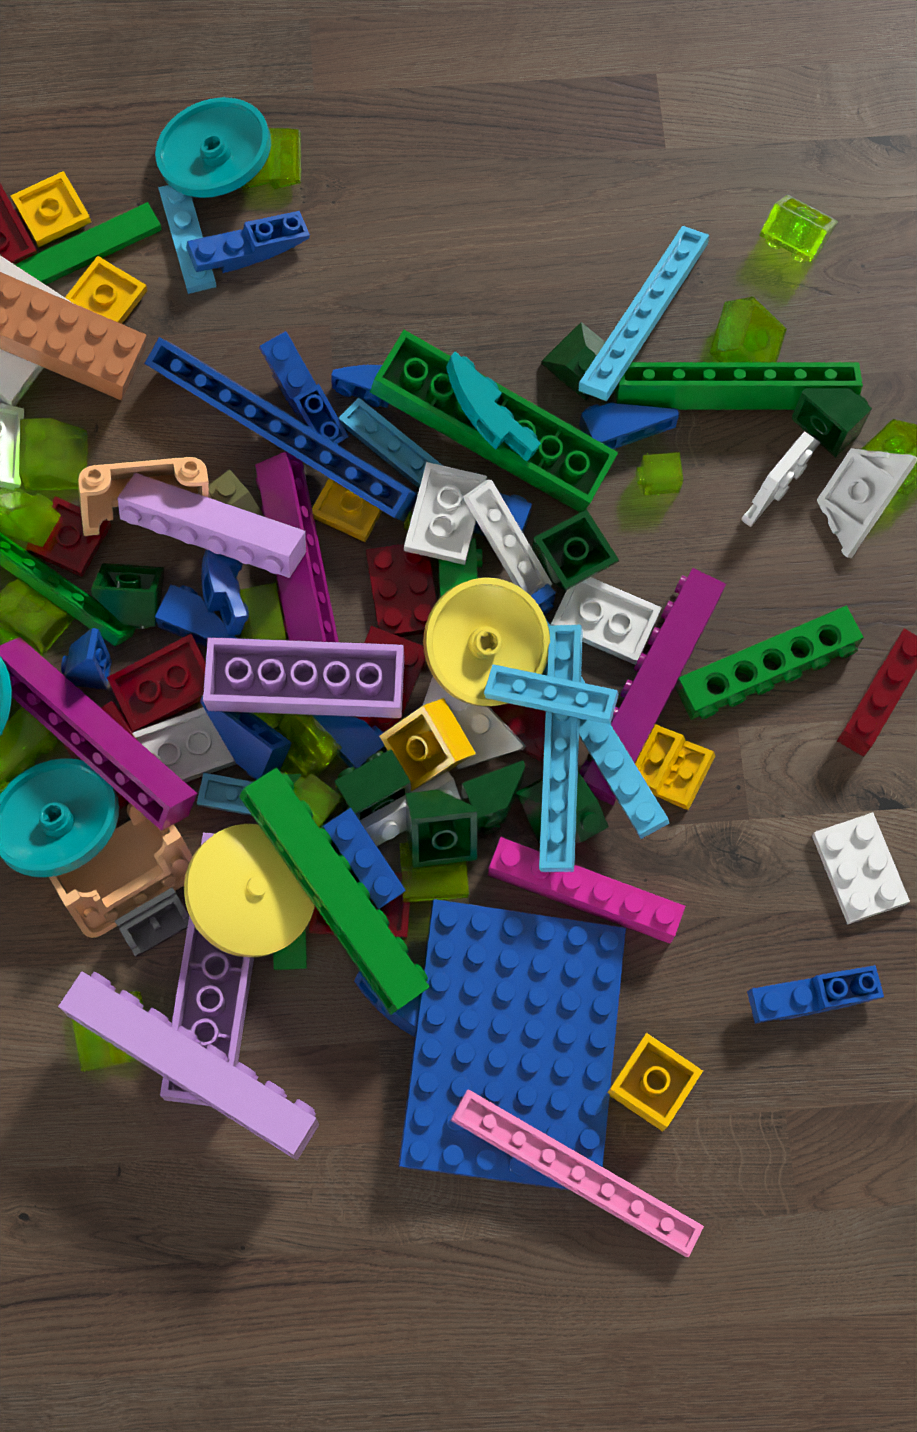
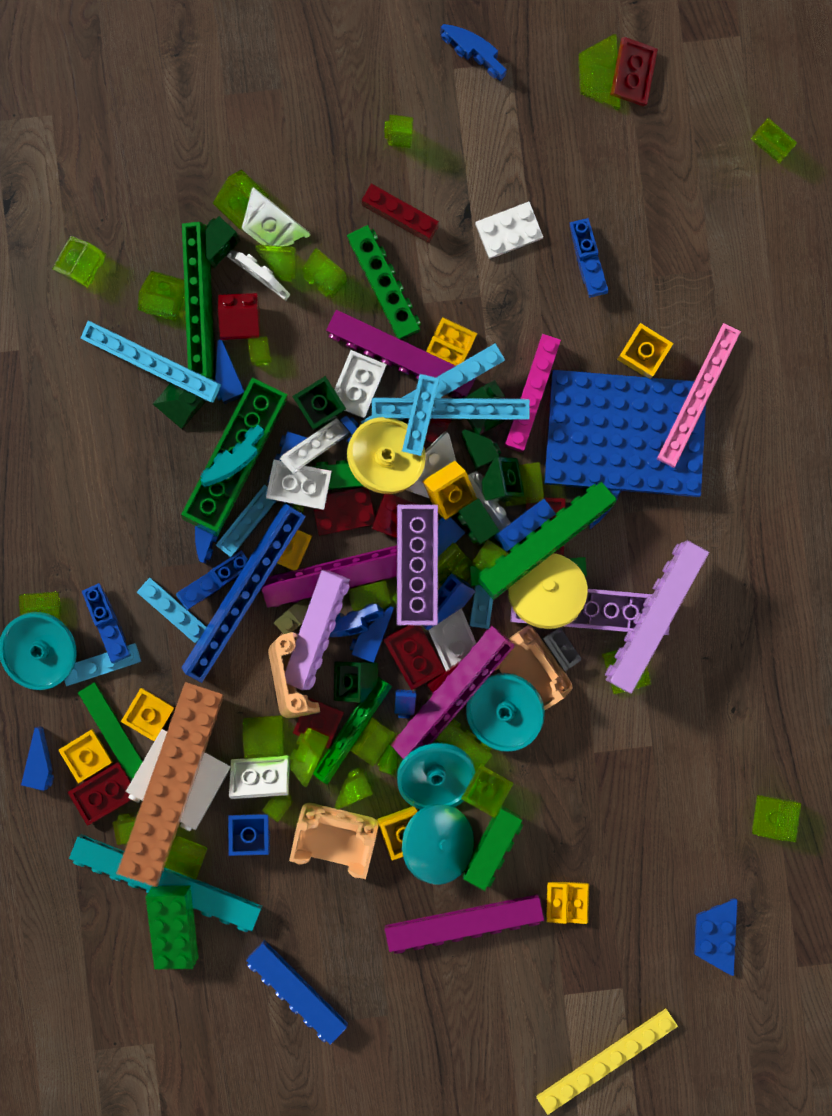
camera: 90 degrees left, 15 degrees up
(45, 145) = (38, 765): none -> blue slope
(244, 352) = (172, 610): none -> medium azure plate
(715, 442) = (239, 316): none -> dark red slope
(783, 570) = (324, 274): none -> clear neon green slope
(803, 505) = (279, 260): none -> clear neon green slope

